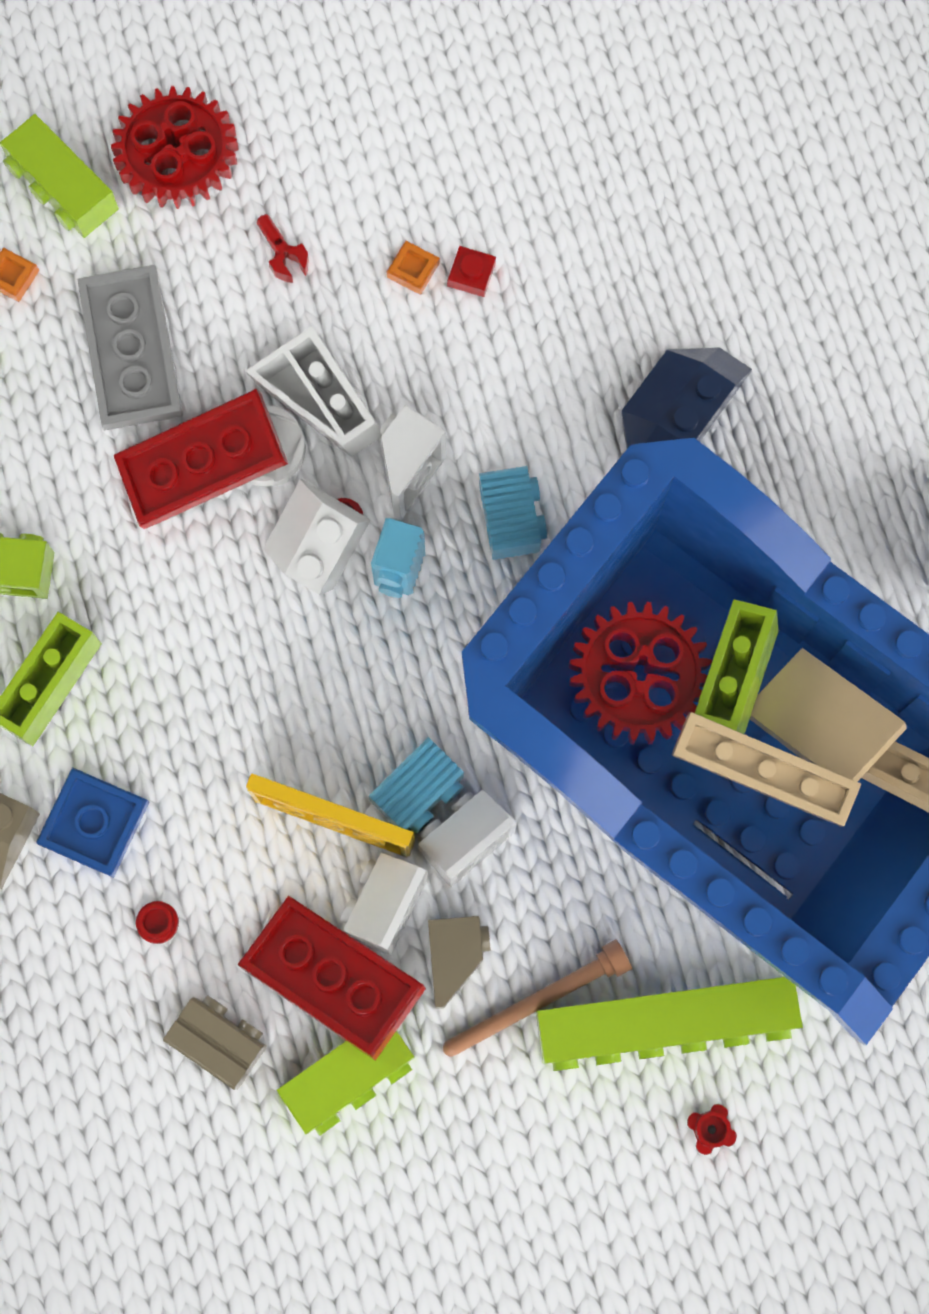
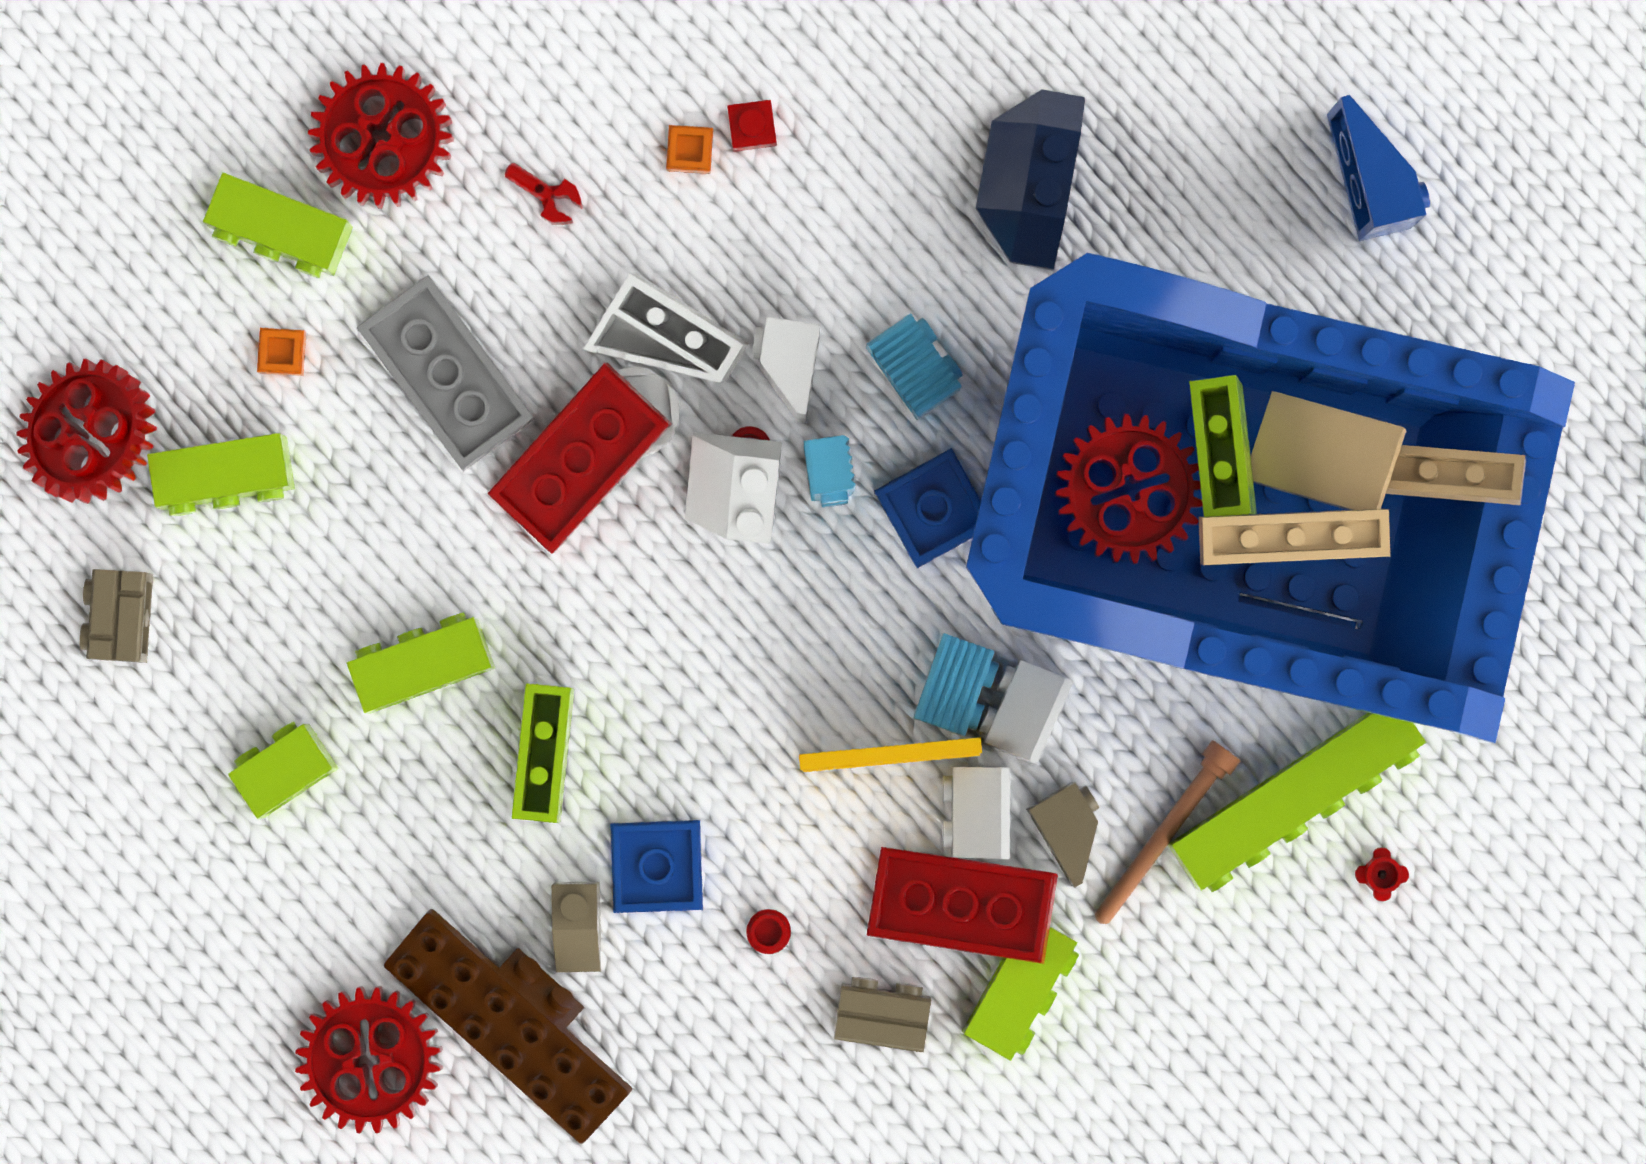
camera: 30 degrees left, 10 degrees up
(453, 625) = (931, 507): none -> blue tile

